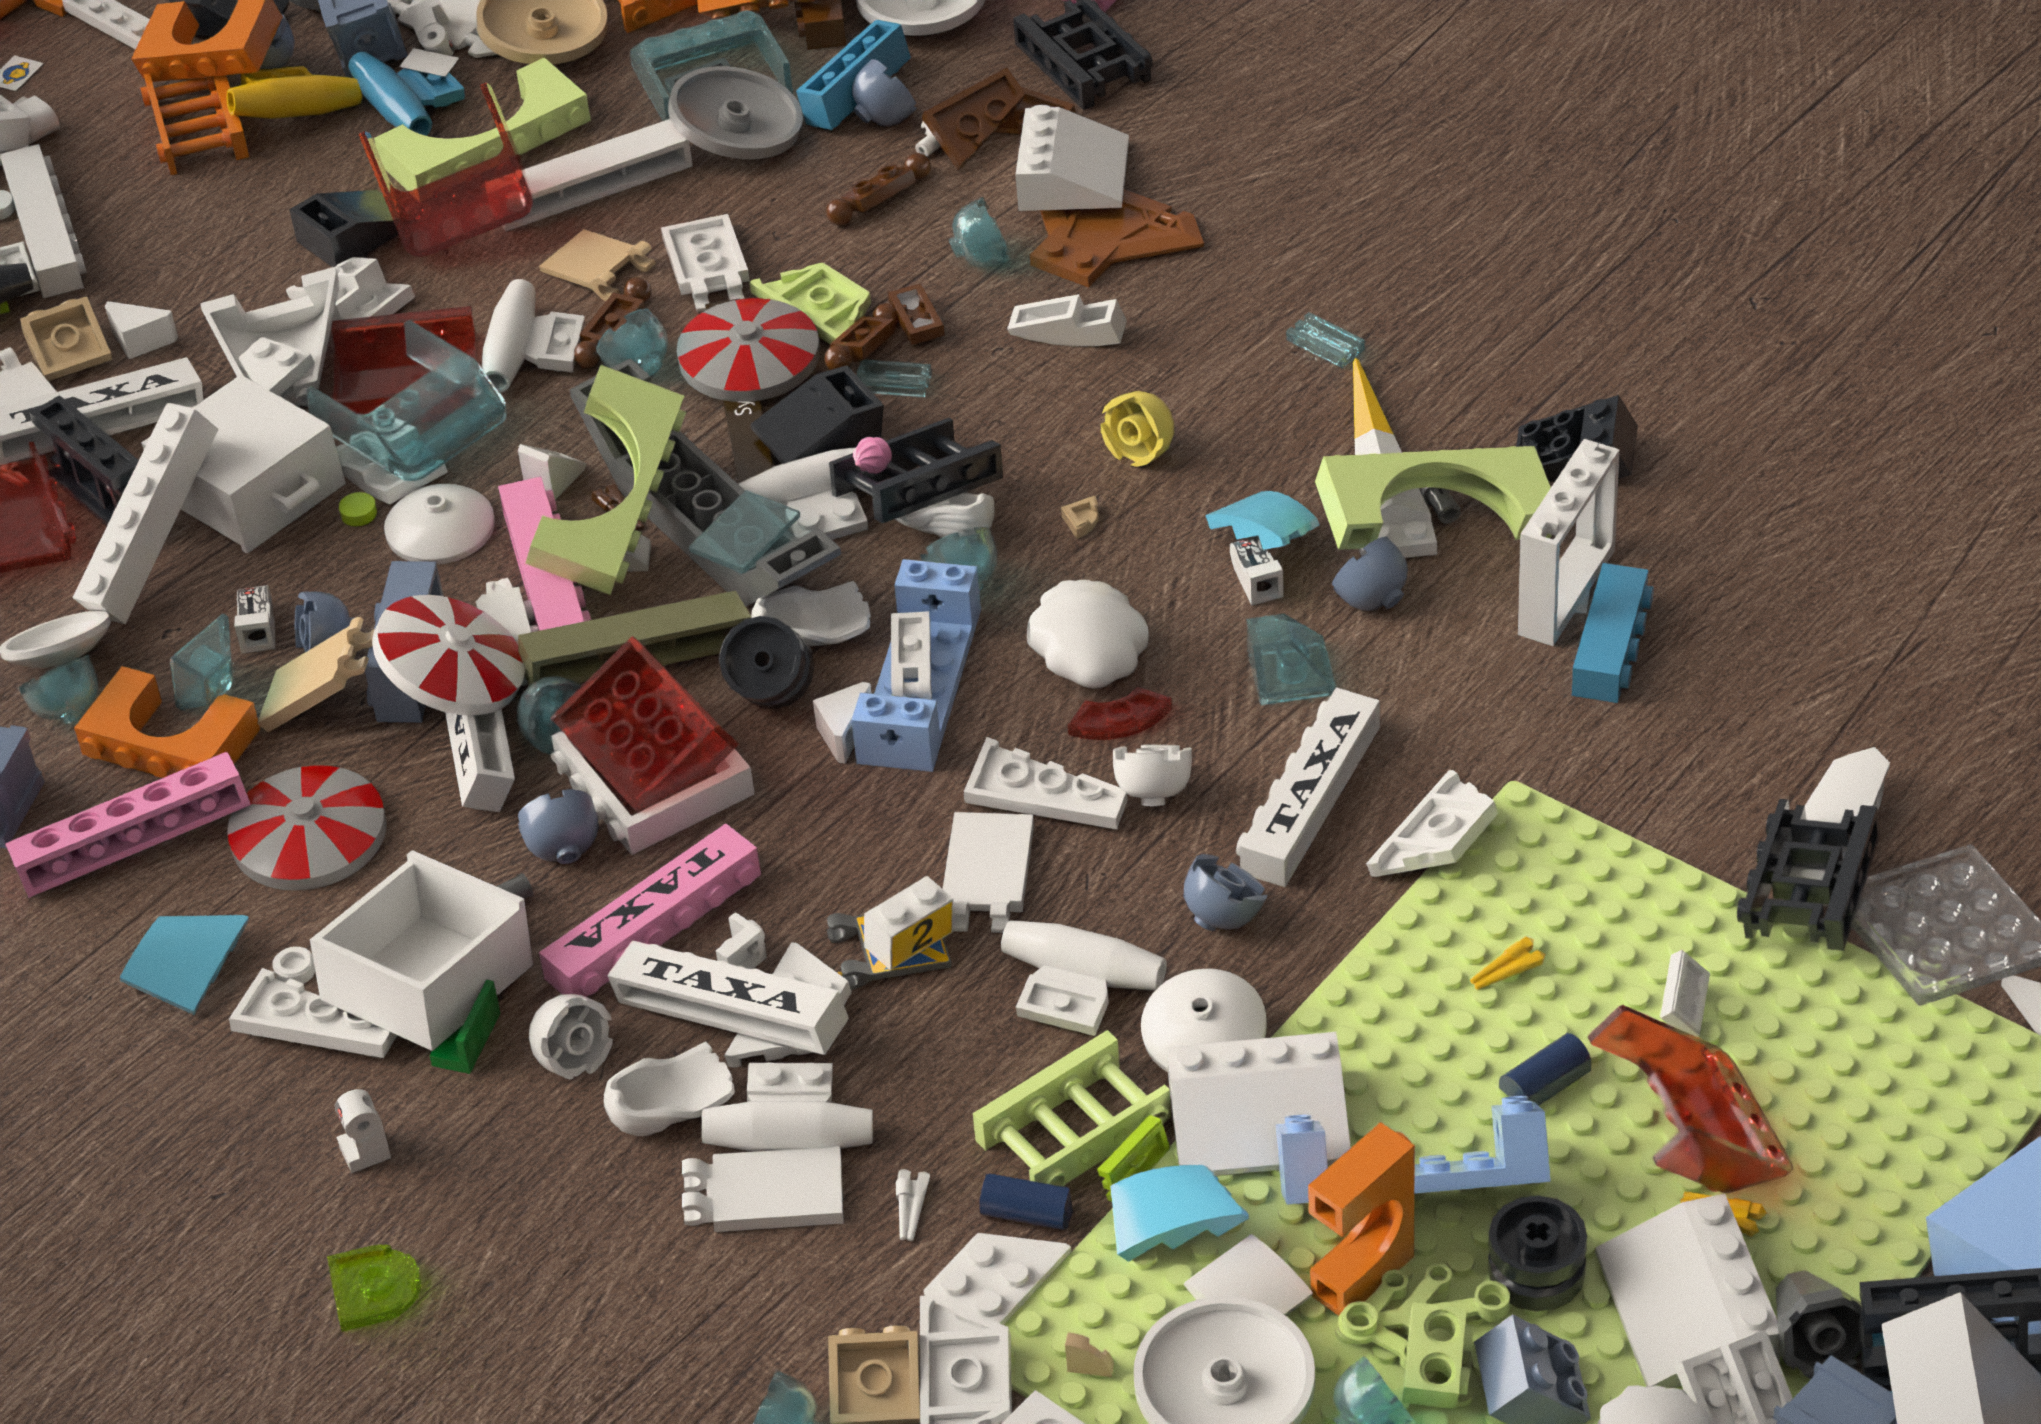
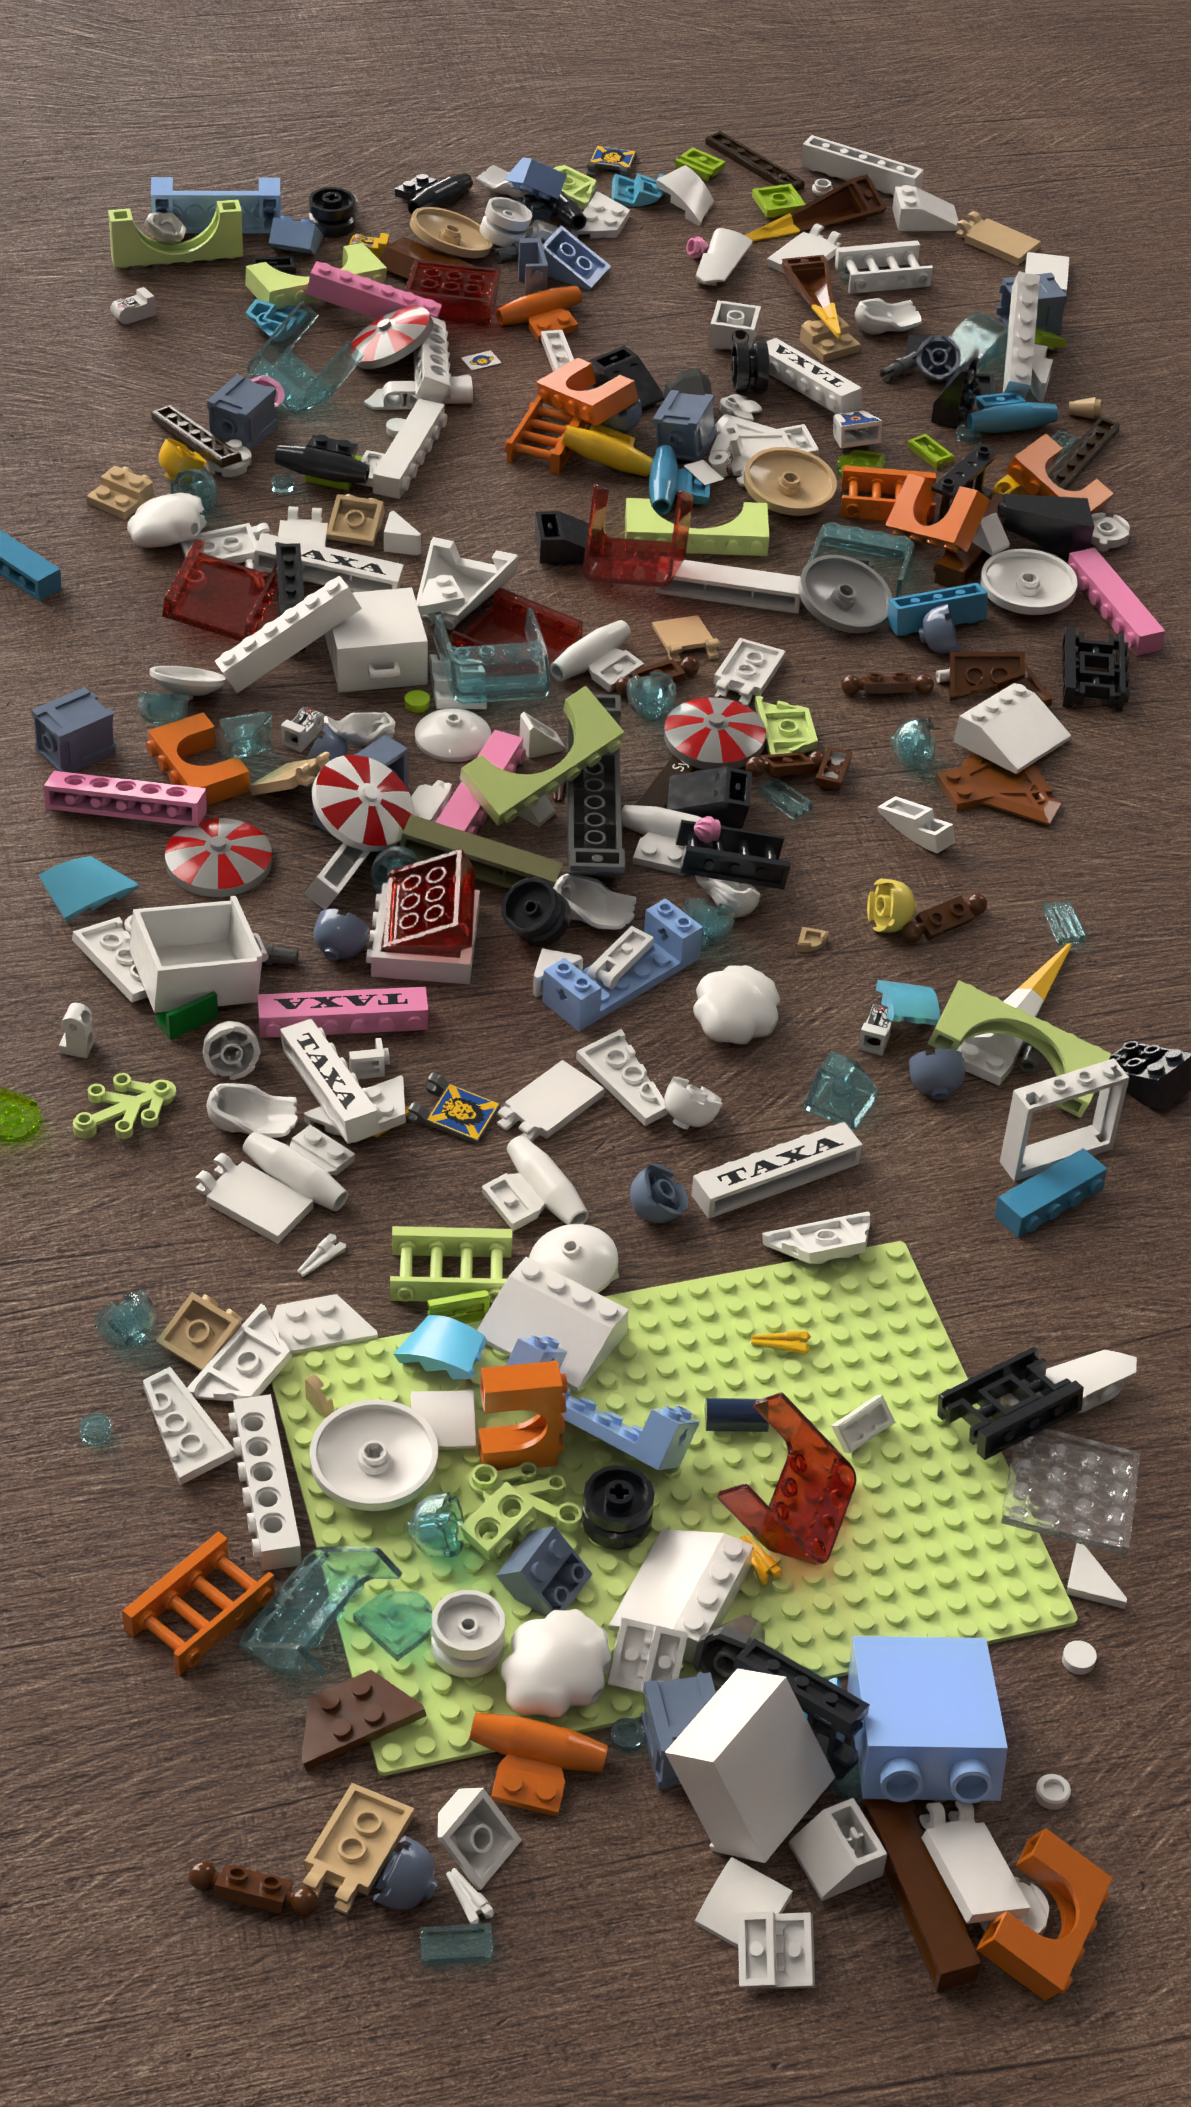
camera: 30 degrees right, 0 degrees up
(340, 571) = (362, 727): none -> white hair
(363, 291) = (538, 582): white slope -> none
(525, 1141) = (158, 1093): none -> yellowish green plant
(744, 531) = (595, 830): clear light blue piece -> none
(908, 922) = (468, 1102): white brick -> none
(1026, 1201) = (377, 1294): dark blue brick -> none
(1119, 717) = (713, 1065): clear red tile -> none
(1201, 407) = (944, 917): none -> reddish brown plate

